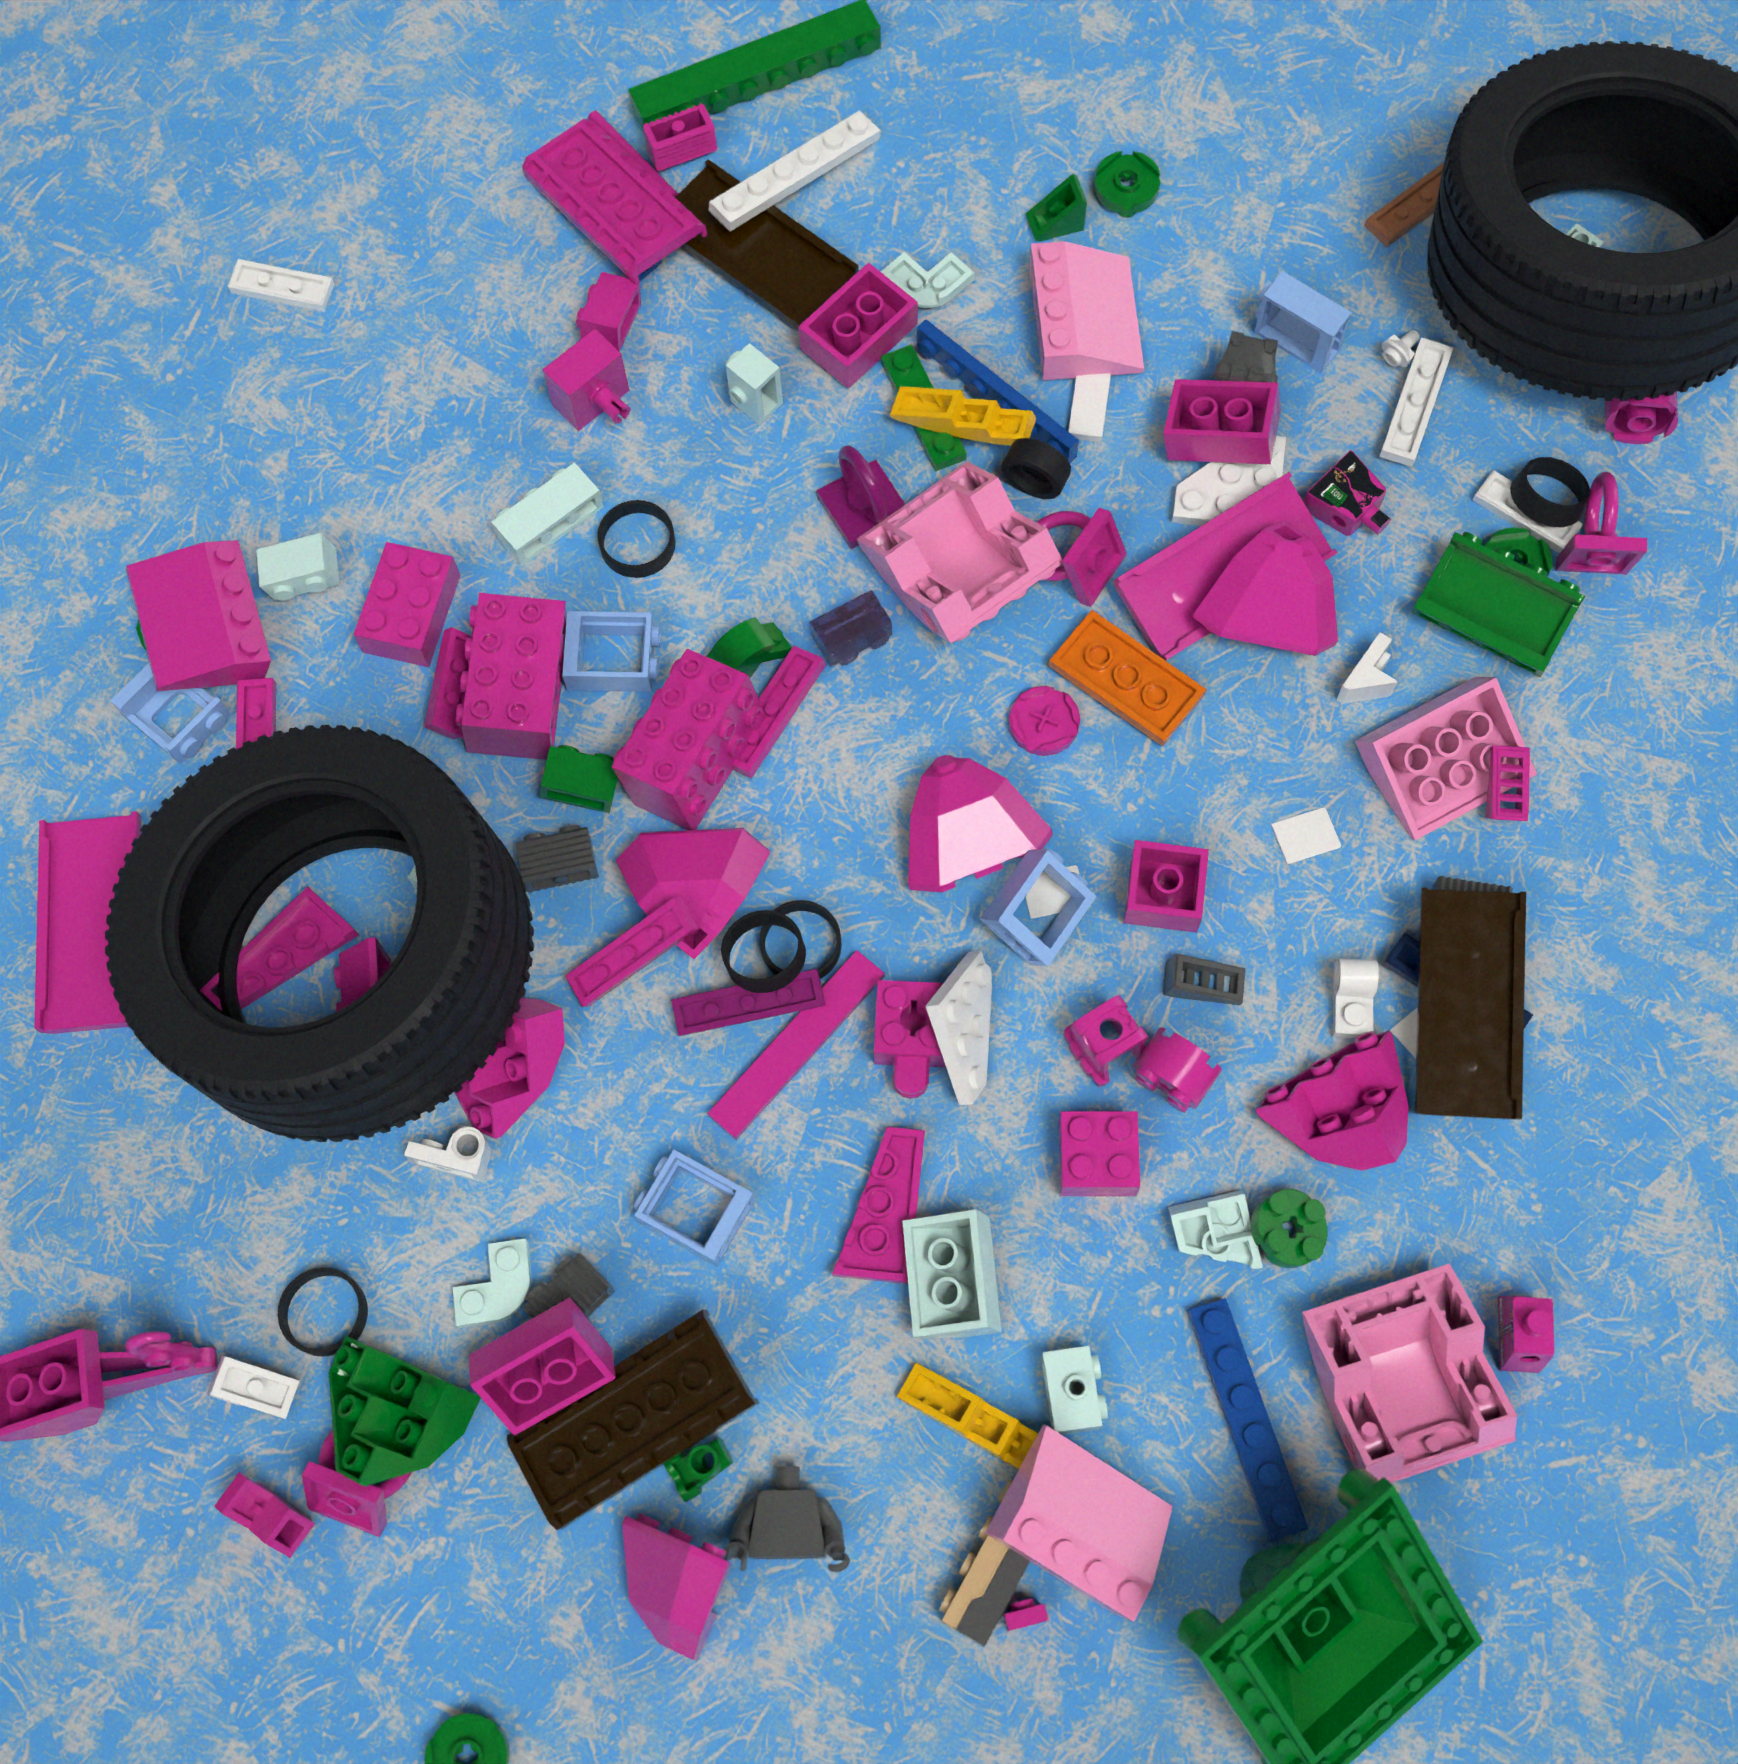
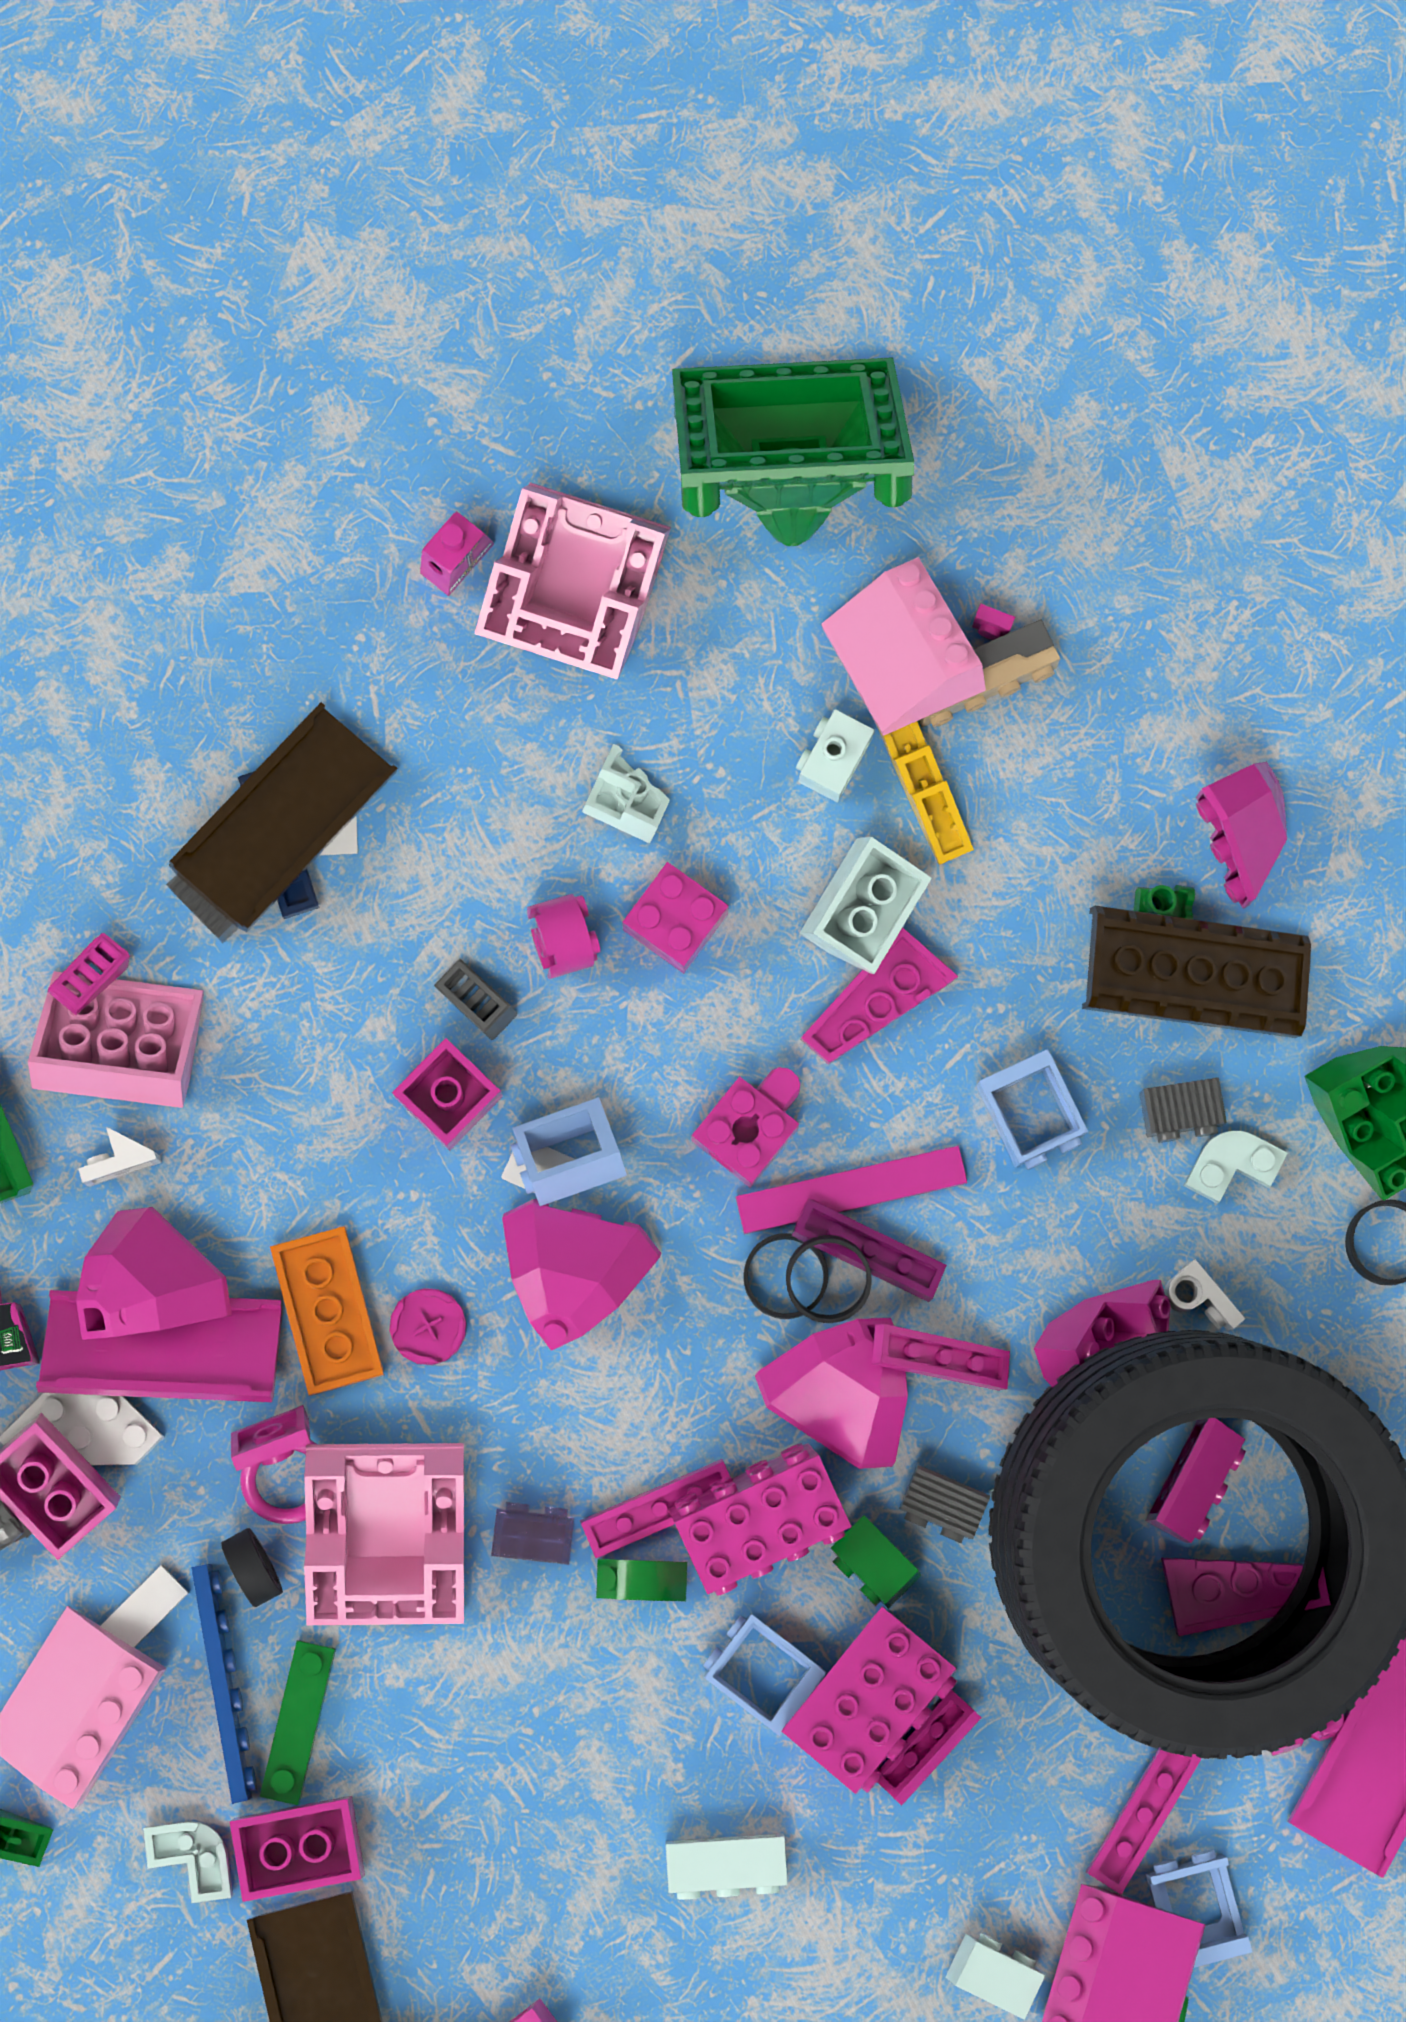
camera: 150 degrees left, 10 degrees up
(407, 604) = (917, 1860): dark pink brick -> none
(541, 1366) = (1243, 1057): dark pink brick -> none
(588, 381) = (597, 1973): dark pink brick -> none
(633, 507) = (660, 1819): black tyre -> none
(754, 383) = (444, 1854): light aqua brick -> none
(788, 1525) = (1127, 811): dark grey torso -> none
(859, 497) = (428, 1662): magenta tile -> none
(961, 417) = (276, 1673): yellow slope -> none
(962, 1025) = (707, 1098): white plate -> none
(1095, 1050) = (613, 1011): dark pink piece -> none
(1247, 1420) = (714, 645): blue plate -> none
(1306, 835) = (288, 1062): white sticker -> none
(1310, 1226) = (559, 737): green plate -> none
(1345, 1105) = (448, 814): dark pink brick -> none
(1353, 994) = (361, 902): white plate -> none

